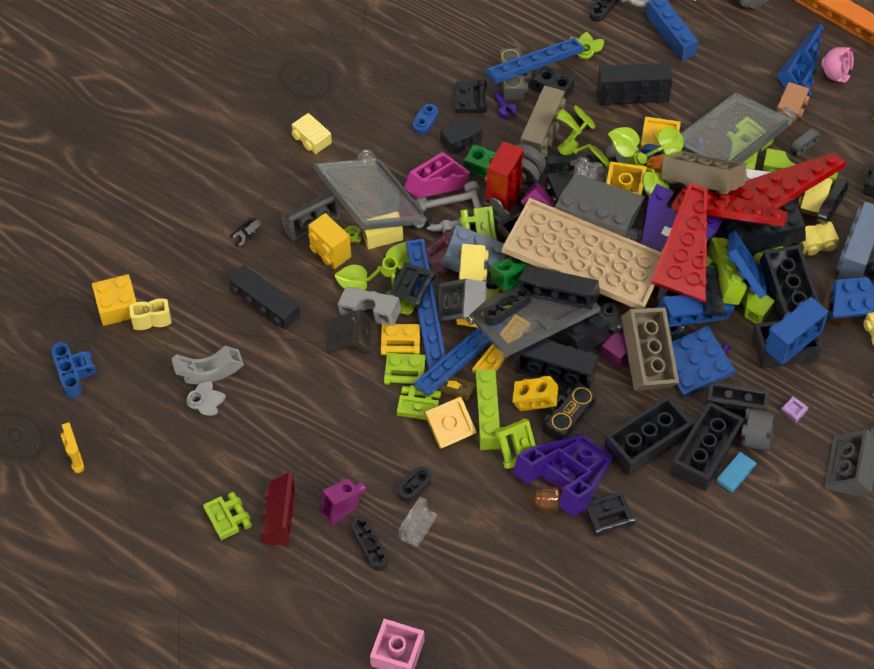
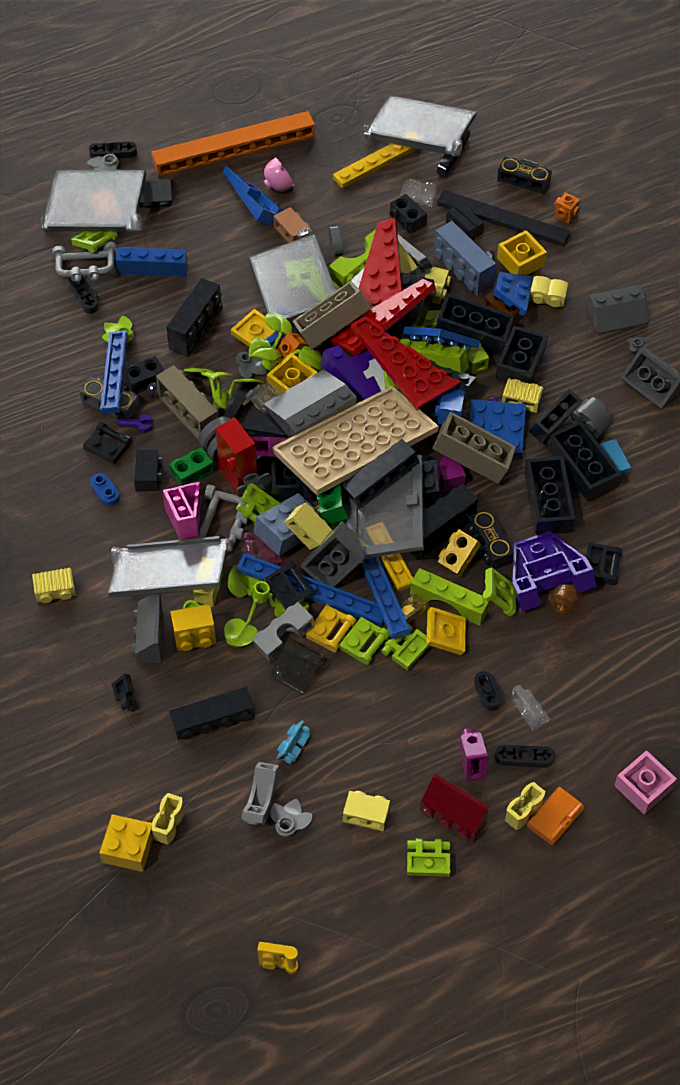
camera: 60 degrees left, 0 degrees up
(76, 367) = (180, 911): blue beam -> none
(242, 448) = (366, 810): none -> light yellow brick
(282, 366) = (288, 748): none -> medium azure hinge
(312, 562) = (524, 806): none -> light yellow brick
(325, 595) = (555, 816): none -> orange piece
(517, 299) = (376, 527): black beam -> none
(746, 364) = (523, 393): none -> light yellow brick
(794, 409) = (581, 388): lavender tile -> none
(796, 330) = (530, 338): blue brick -> none

